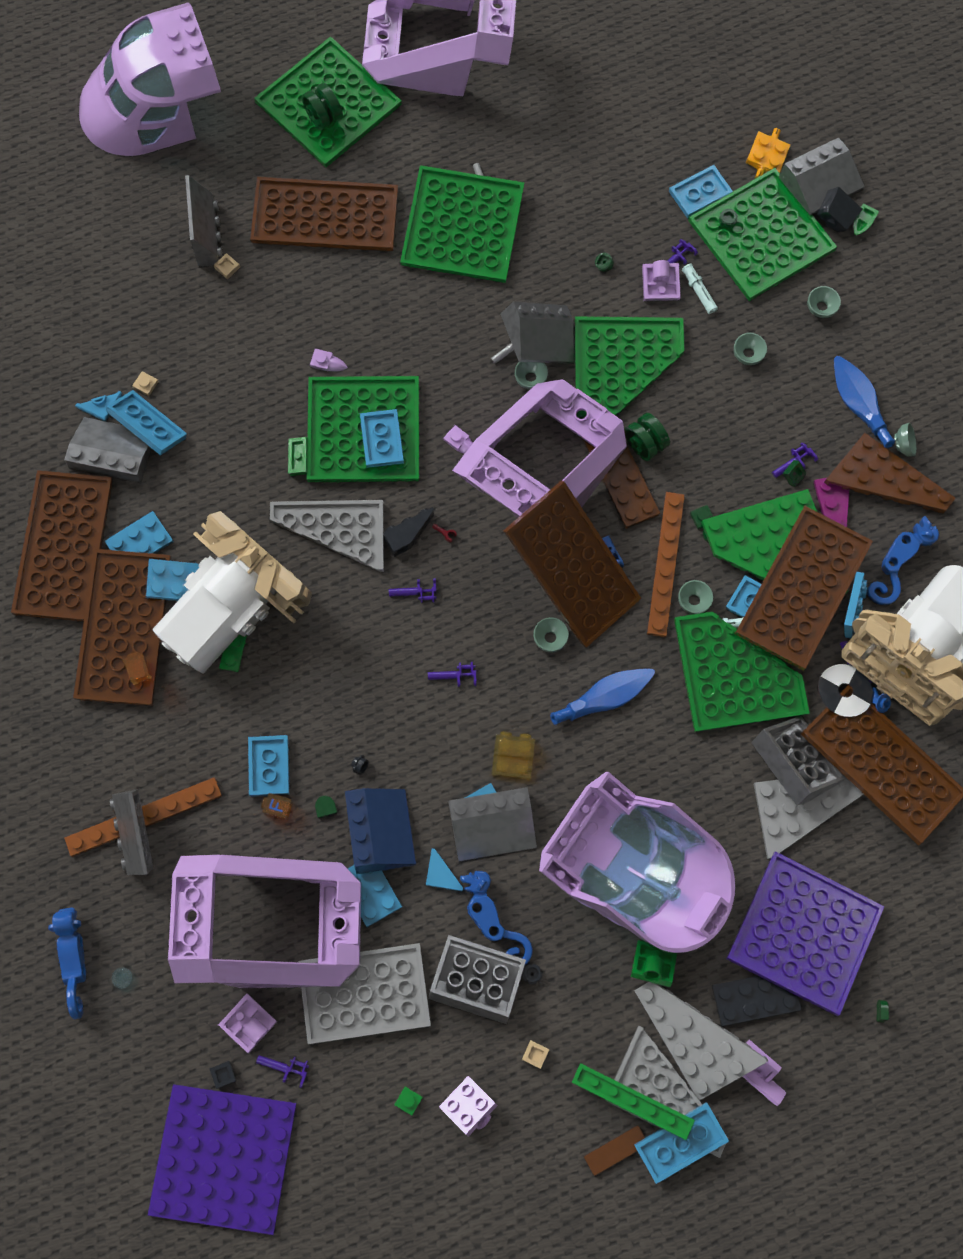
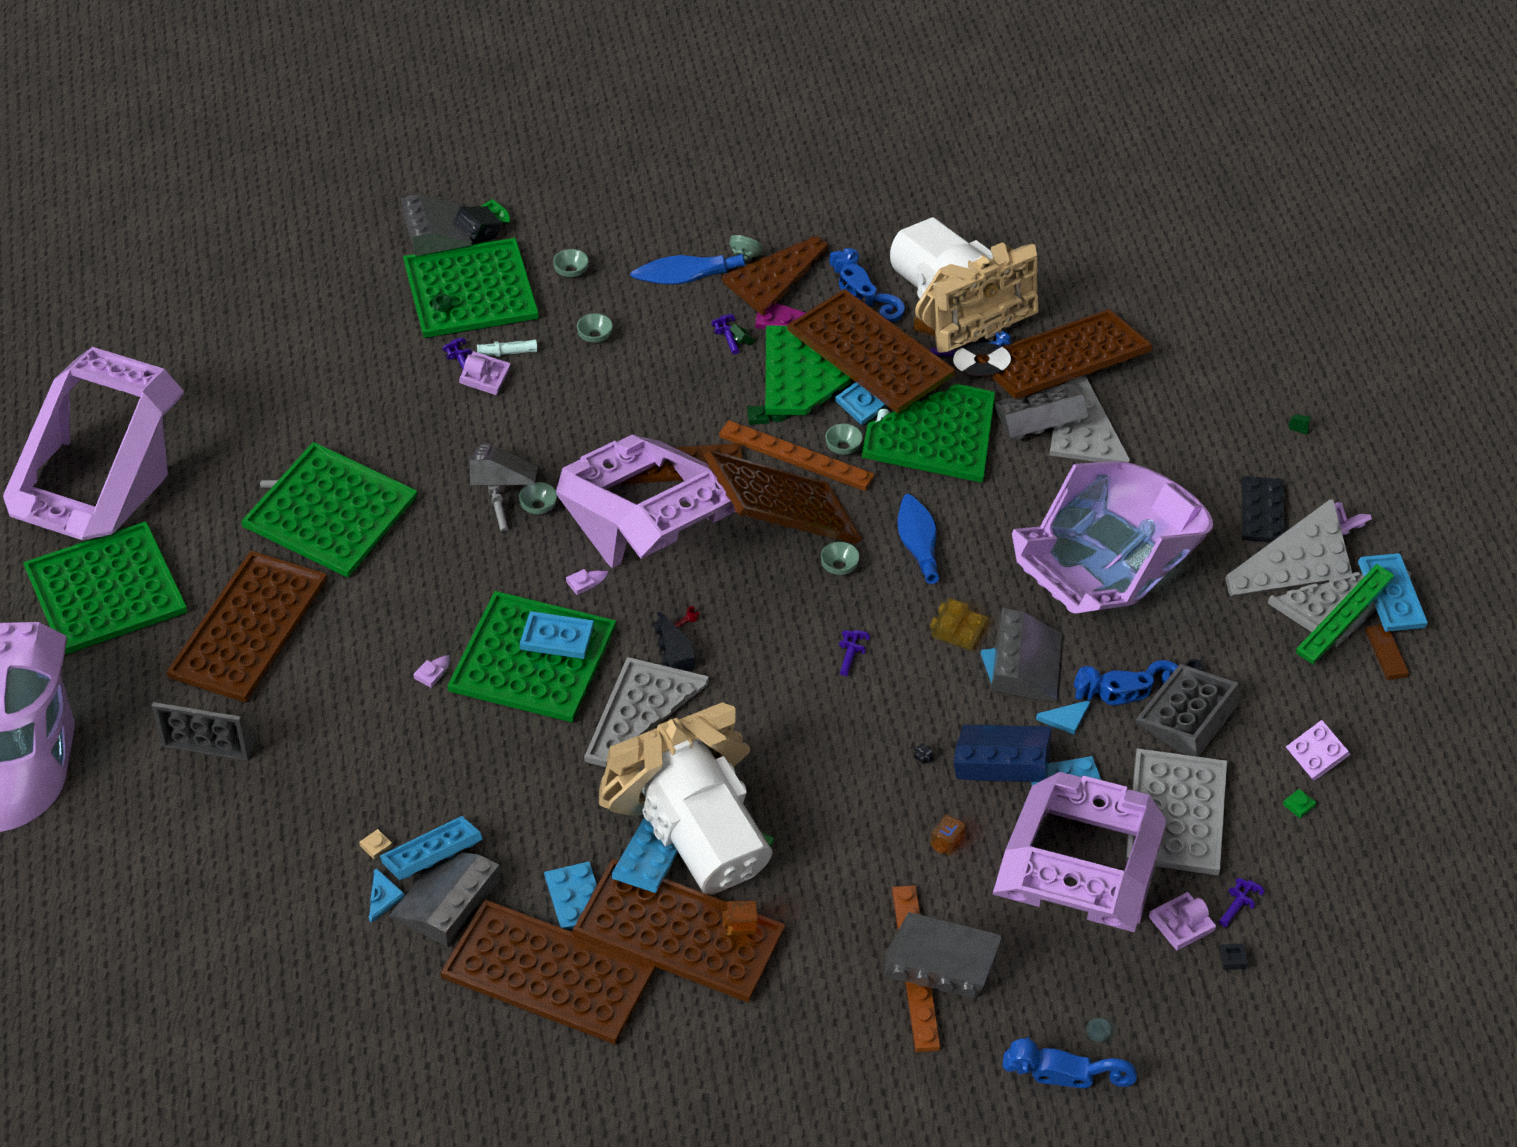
camera: 70 degrees left, 25 degrees down
(222, 1159) = (1324, 981): dark purple plate -> none
(226, 266) = (265, 729): tan plate -> none
(268, 765) = (896, 834): dark azure plate -> none
(297, 456) = (539, 720): plate -> none
(322, 106) = (121, 578): dark green wheel -> none
(325, 806) = (959, 797): dark green tile -> none
(415, 591) = (743, 657): dark purple piece -> none
(535, 1054) = (1277, 686): tan plate -> none
(604, 262) = (437, 411): dark green tile -> none
(623, 356) = (551, 422): green plate -> none
(647, 436) = (657, 421): dark green wheel -> none
(653, 964) = (1210, 568): green plate -> none
(700, 191) = (397, 318): dark azure plate -> none
(767, 152) = (381, 259): light orange plate -> none
(805, 933) = (1212, 452): dark purple plate -> none
(855, 605) = (913, 327): dark azure plate -> none

